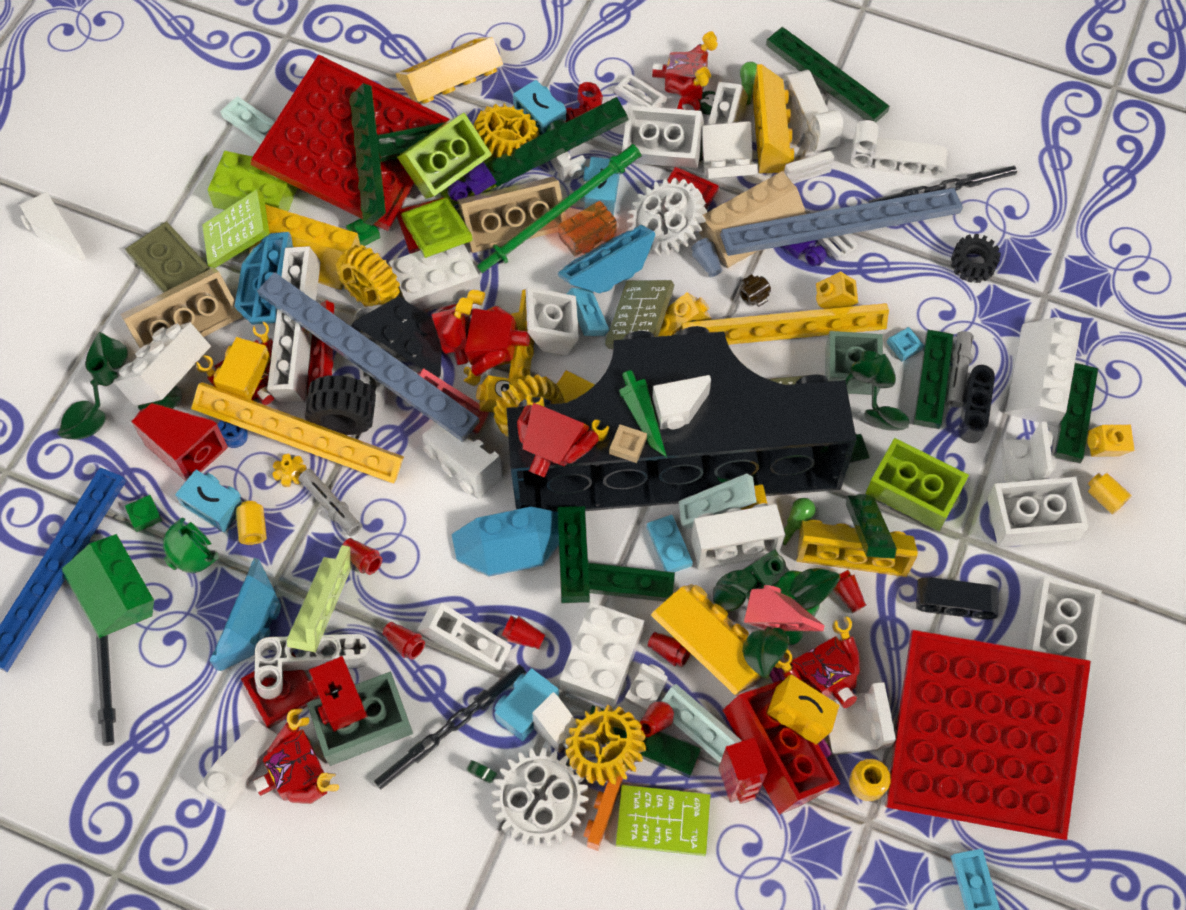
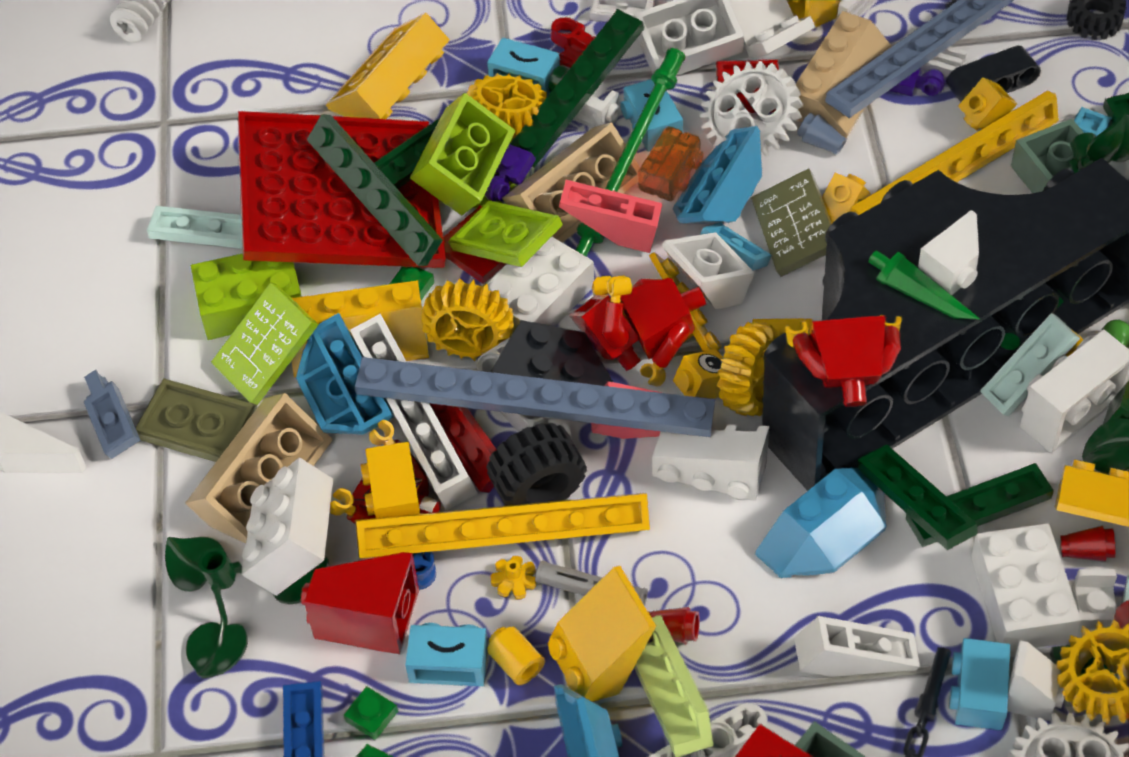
camera: 25 degrees left, 10 degrees down
(117, 229) = (109, 415): none -> sand blue hinge
(187, 548) = (462, 719): green cylinder -> none
(296, 543) = (602, 637): none -> yellow slope
(404, 640) = (790, 689): red cone -> none
(516, 248) = (615, 215): none -> coral slope
(522, 633) = (916, 612): red cone -> none
(628, 443) = (932, 323): tan plate -> none
(669, 544) = (1002, 440): medium azure plate -> none
(755, 290) = (899, 142): dark brown gear -> none
(868, 271) = (1008, 68): none -> black beam

